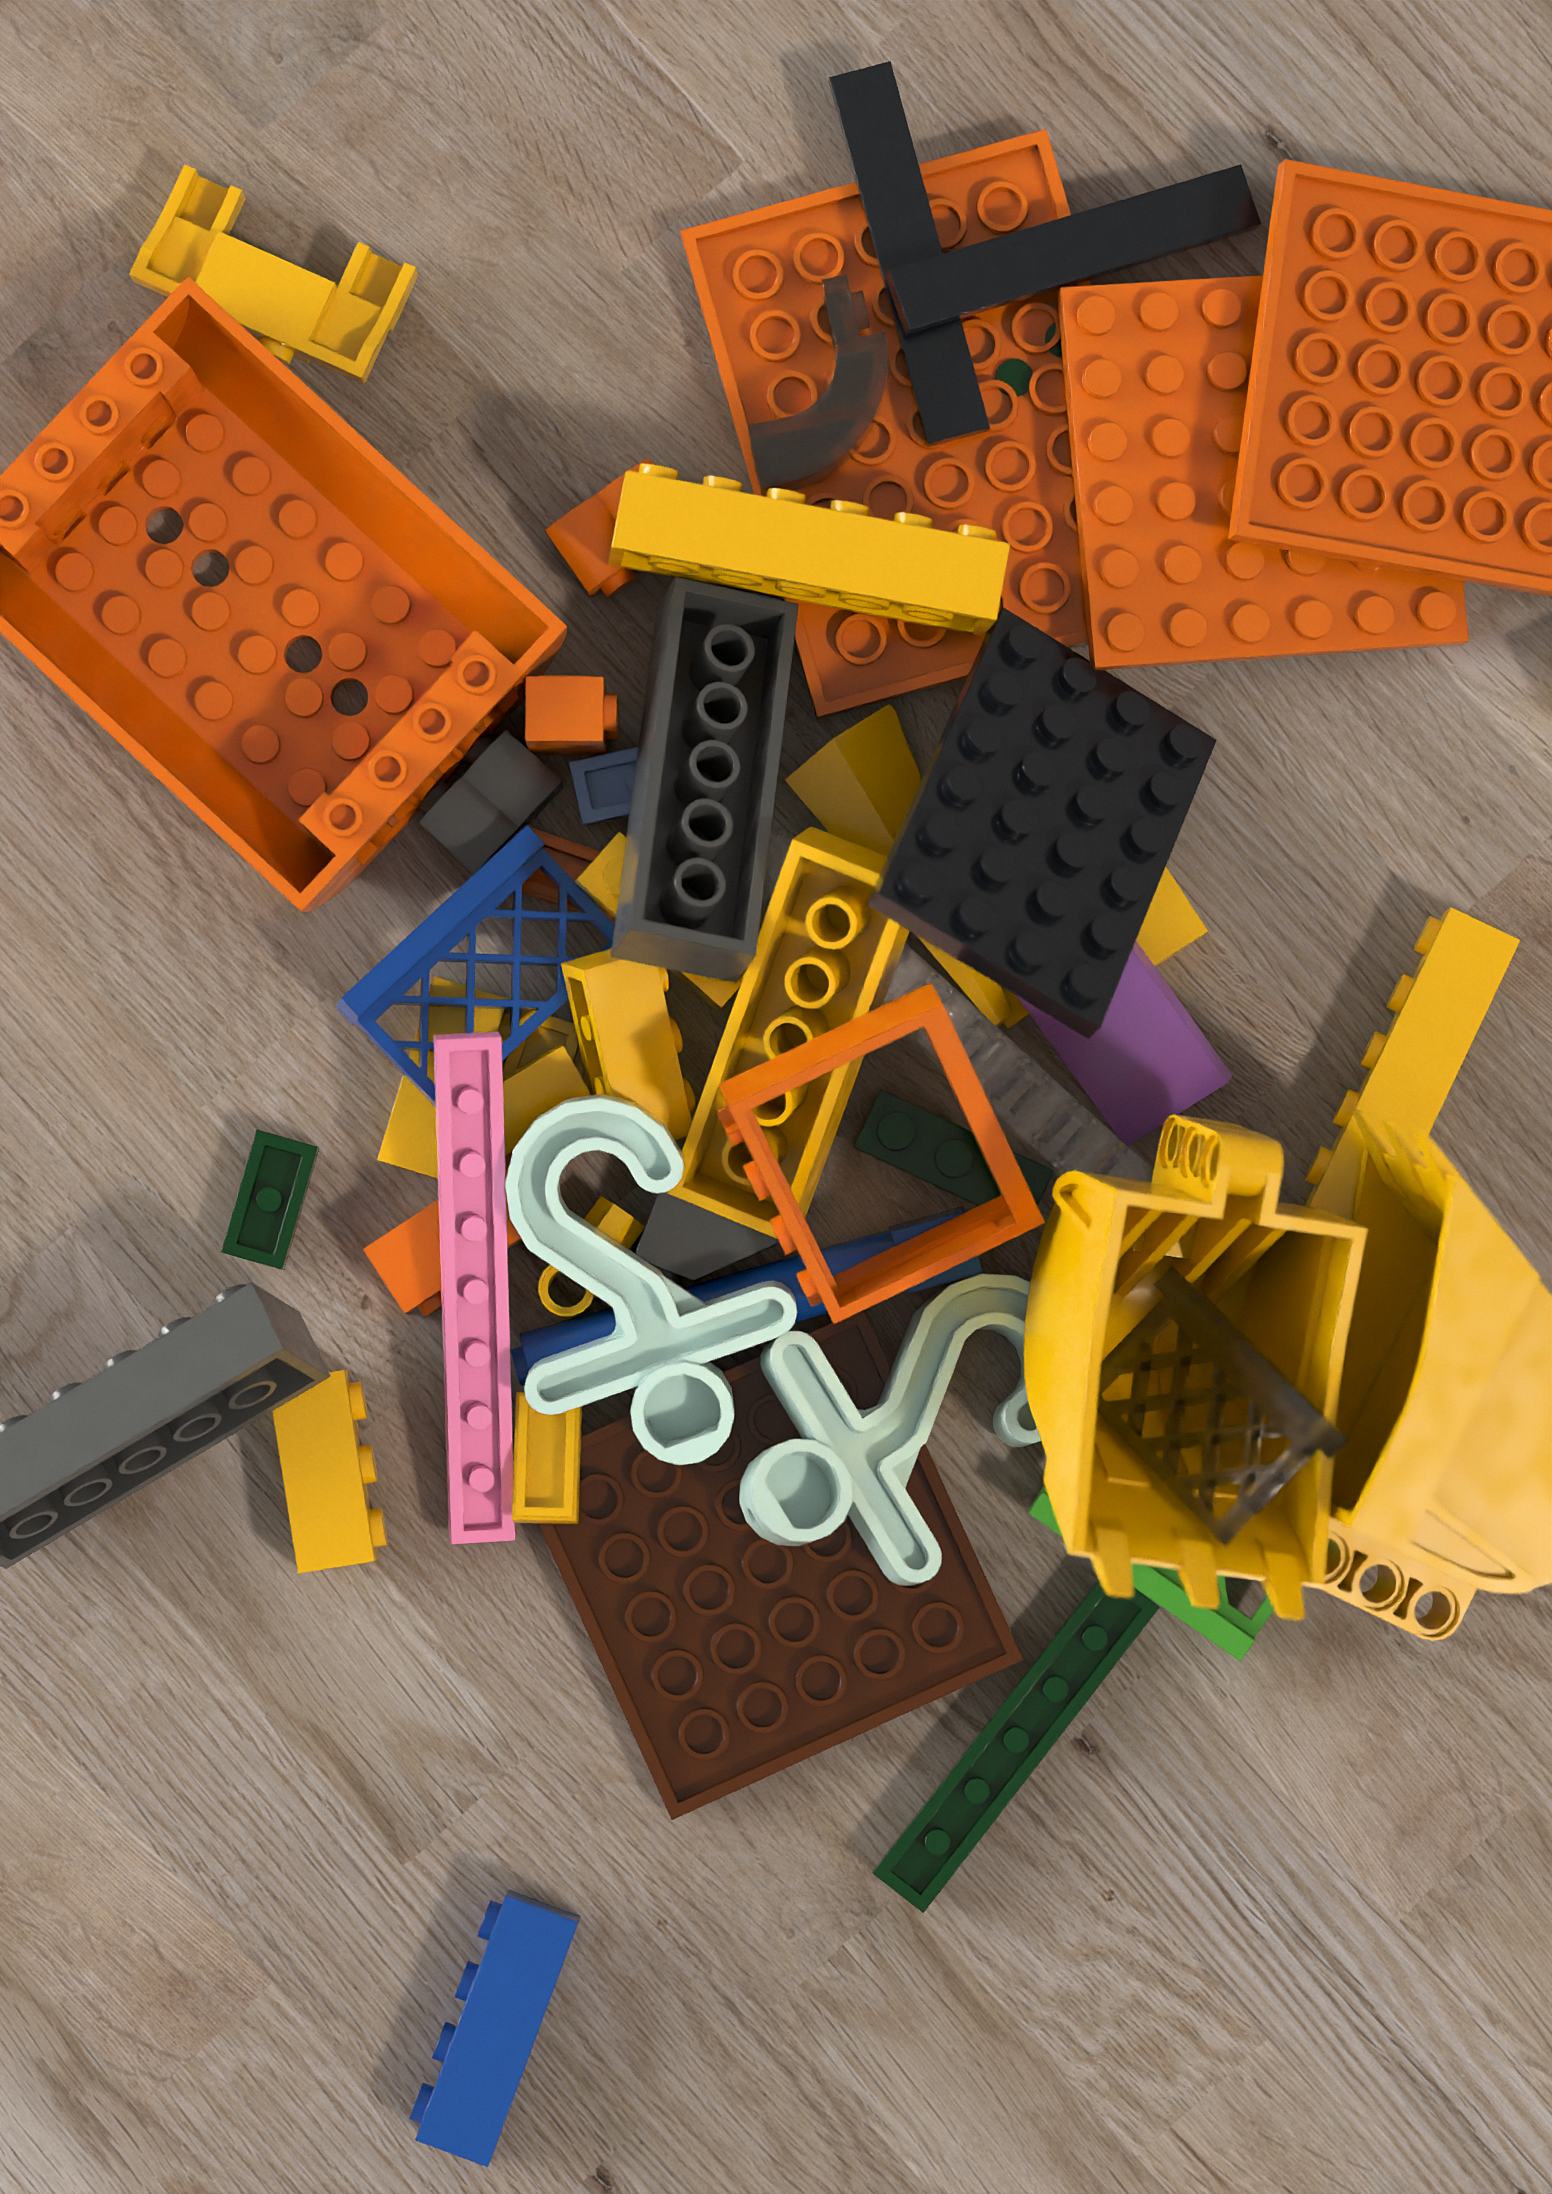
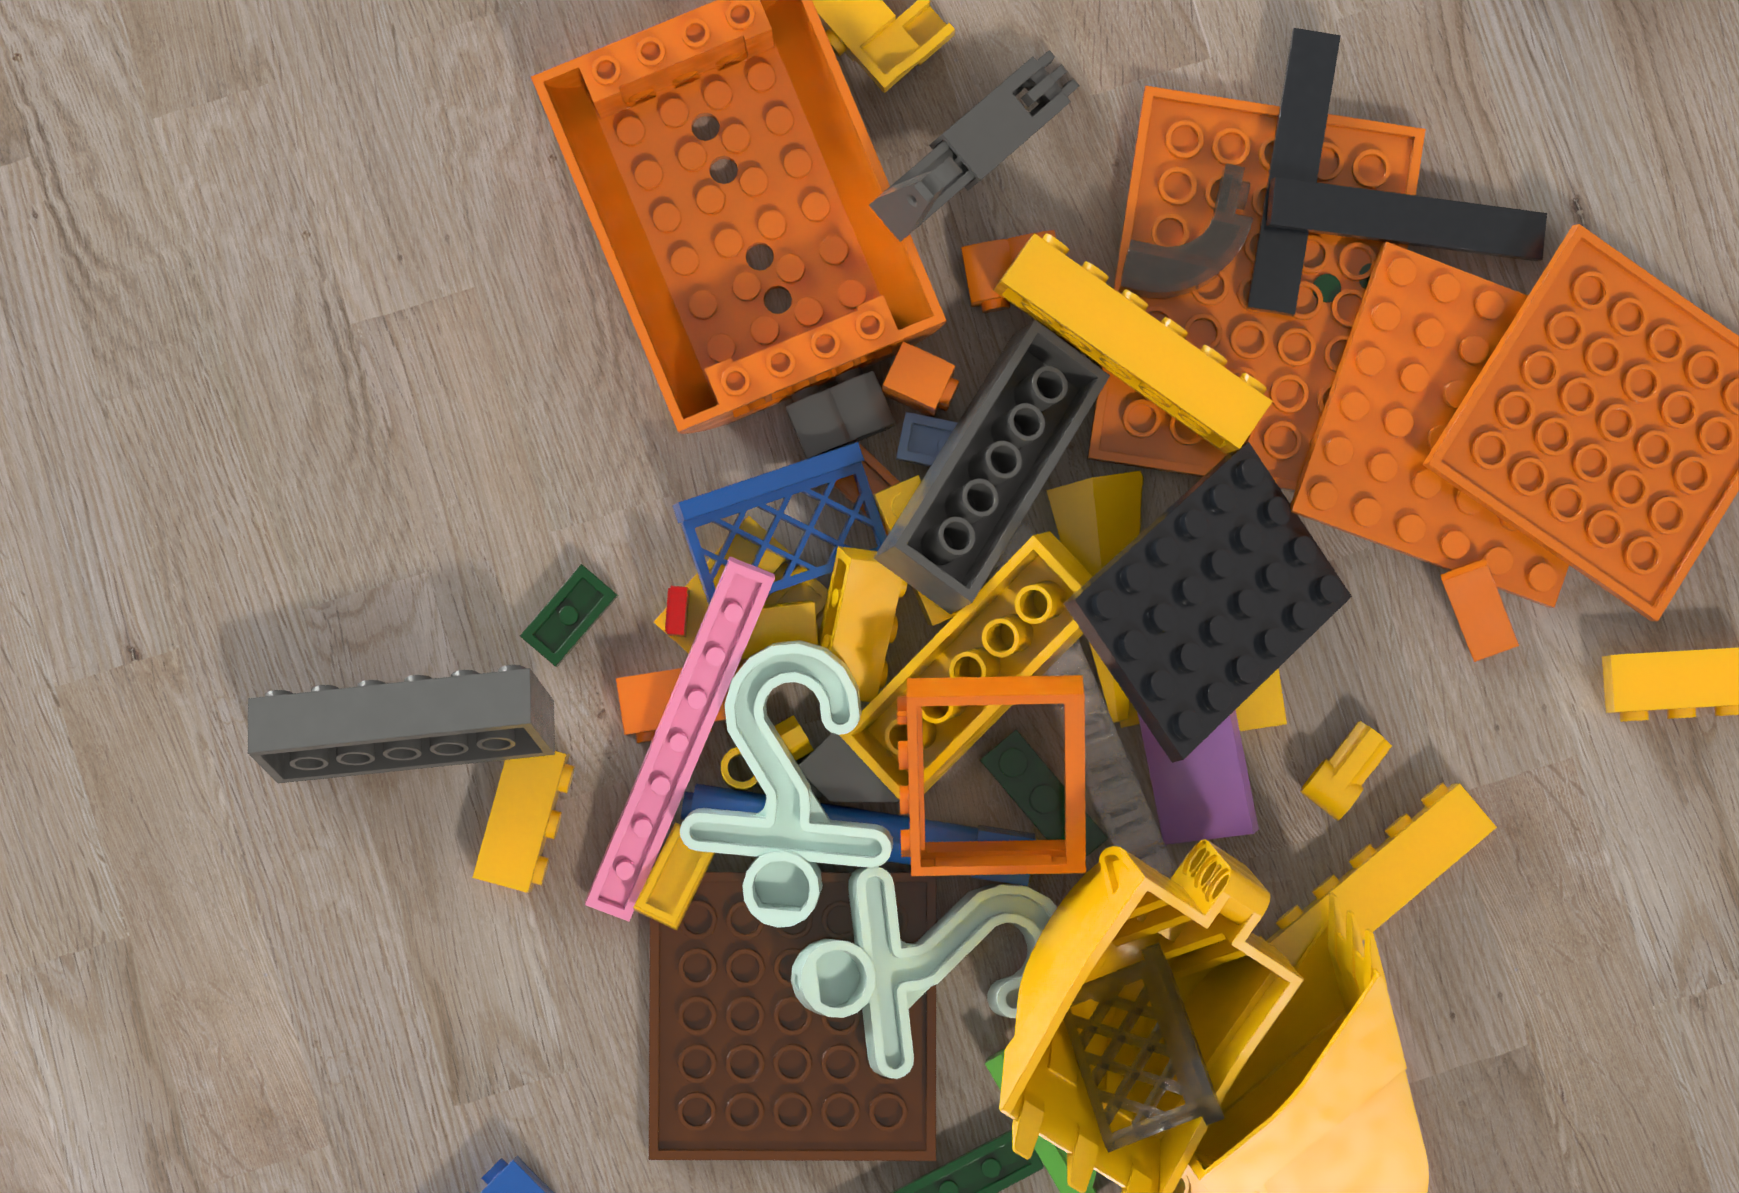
camera: 25 degrees right, 0 degrees up
(400, 1132) = (677, 611): none -> red tile
(504, 396) = (975, 145): none -> dark grey hinge
(1303, 970) = (1339, 780): none -> yellow piece
(1379, 685) = (1479, 610): none -> orange tile

